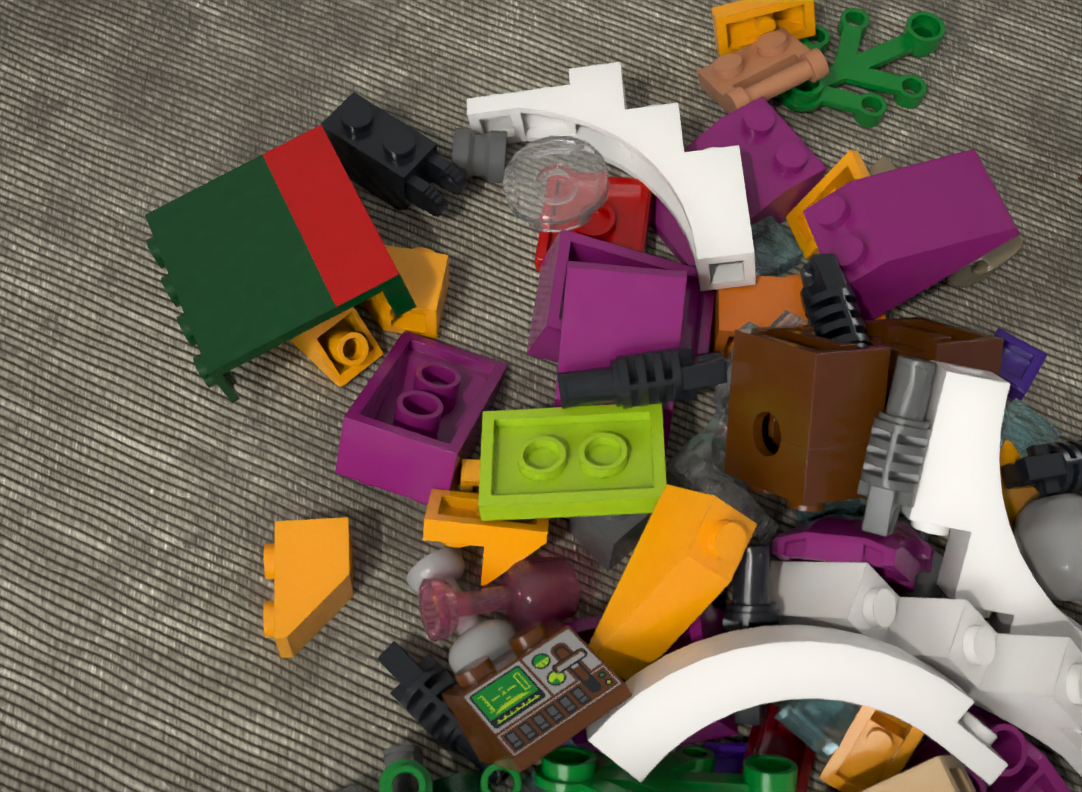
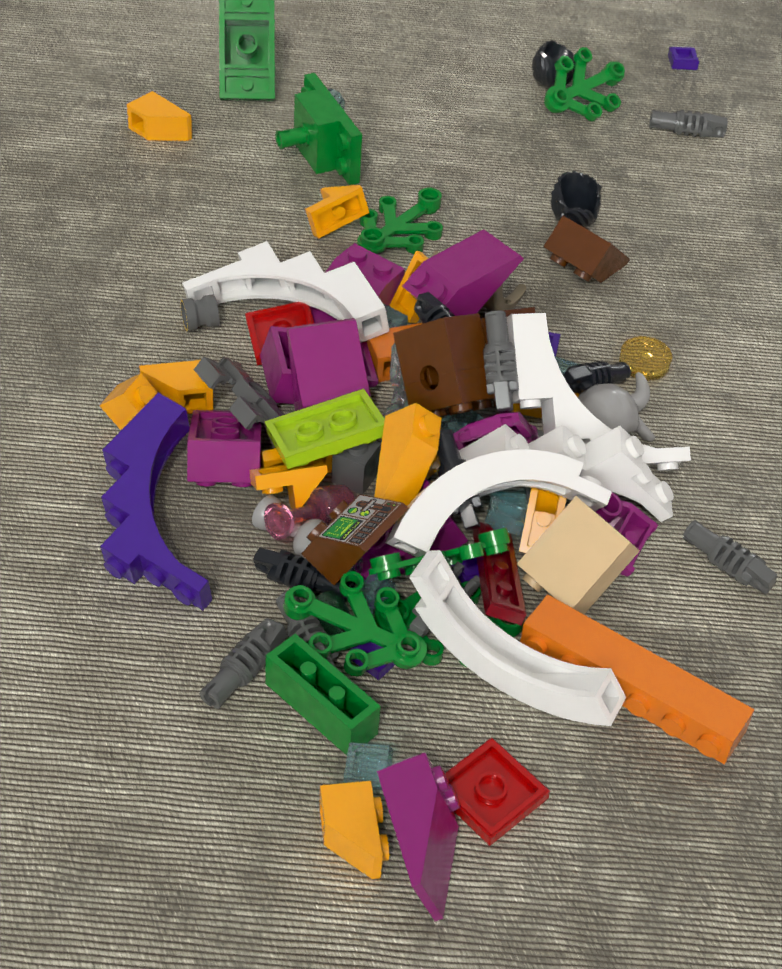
camera: 20 degrees left, 15 degrees down
(265, 420) = (136, 461): none -> dark purple arch
(269, 255) = (103, 378): dark green panel -> none
(310, 578) = (195, 531): light orange slope -> none
(390, 157) = (146, 324): black hinge -> none
(495, 334) = (252, 402): none -> dark grey piece
(556, 183) = (252, 313): clear tile -> none
(643, 378) = (348, 377): black hinge -> none
(761, 69) = (348, 229): nougat plate -> none

